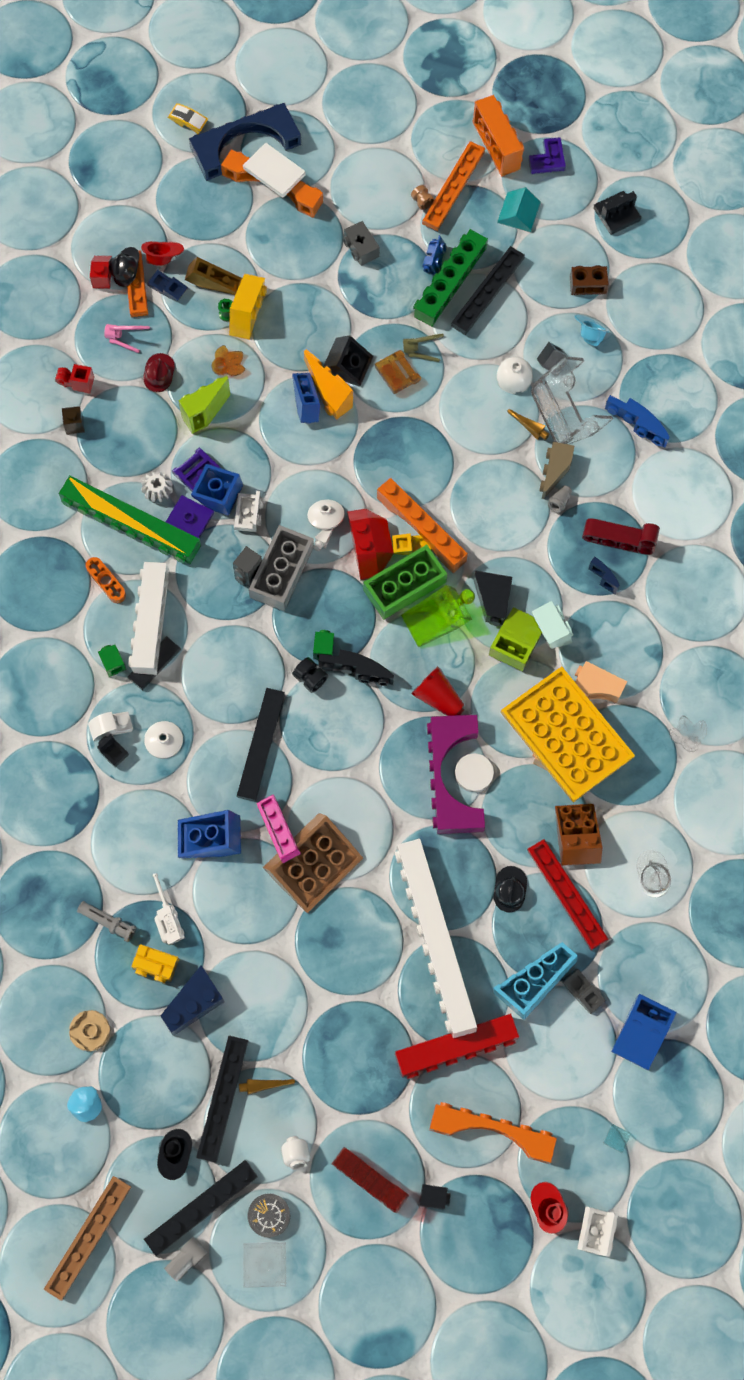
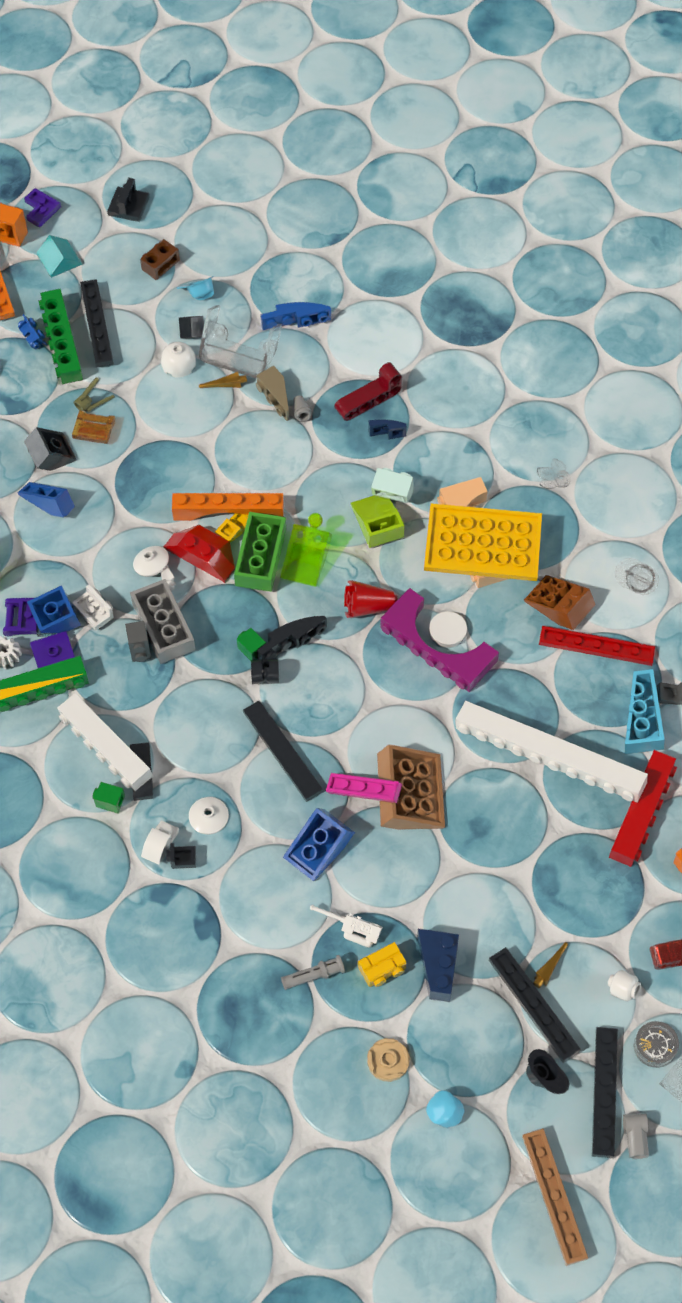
camera: 45 degrees left, 10 degrees down
(104, 571) = (24, 755): orange beam -> none
(334, 391) = (64, 473): light orange wedge -> none
(493, 595) = (330, 505): black slope -> none
(510, 889) = (557, 678): black piece -> none

